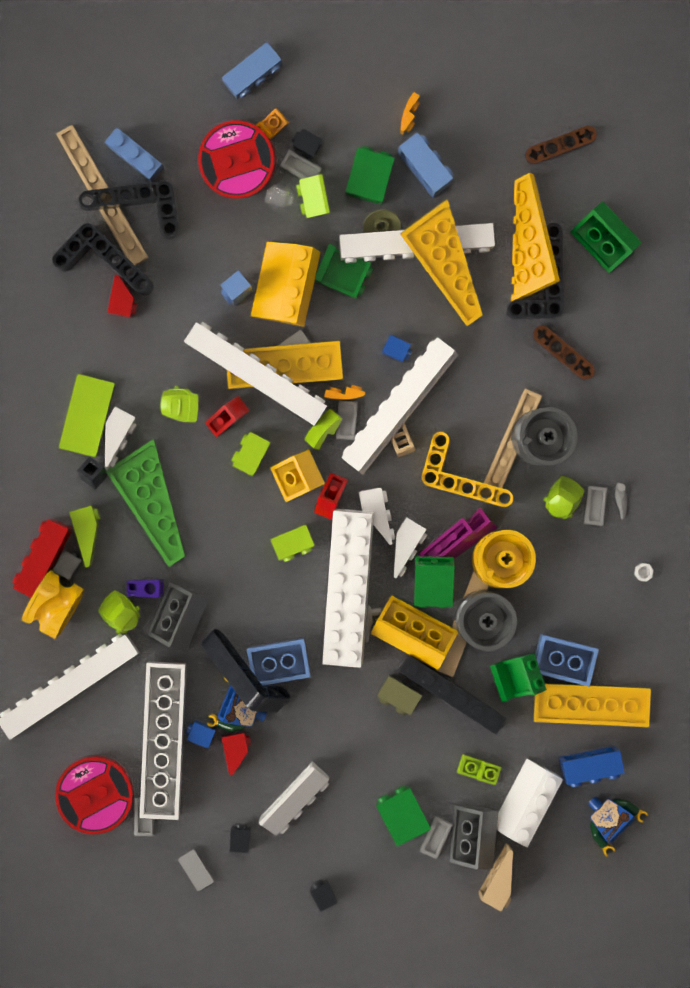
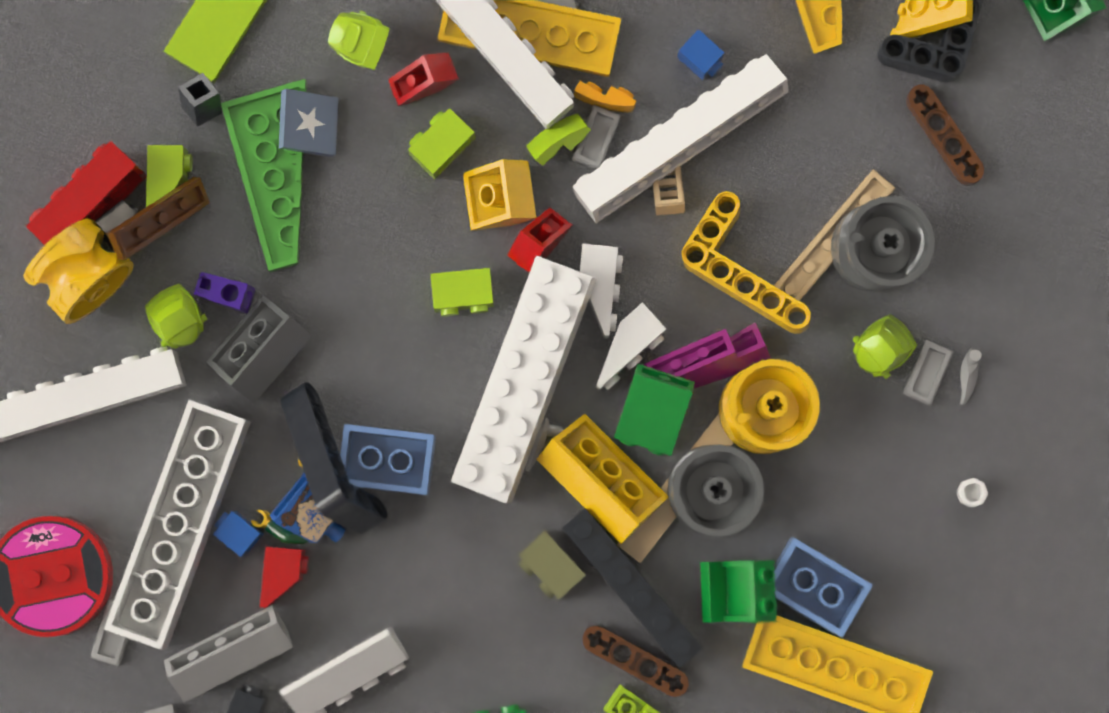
camera: 15 degrees right, 5 degrees down
(92, 557) = (158, 218): none -> reddish brown tile
(117, 429) = (256, 49): white slope -> none
(164, 467) = (308, 122): none -> sand blue tile
(218, 809) = (228, 654): none -> light grey brick
(467, 739) = (633, 664): none -> reddish brown beam

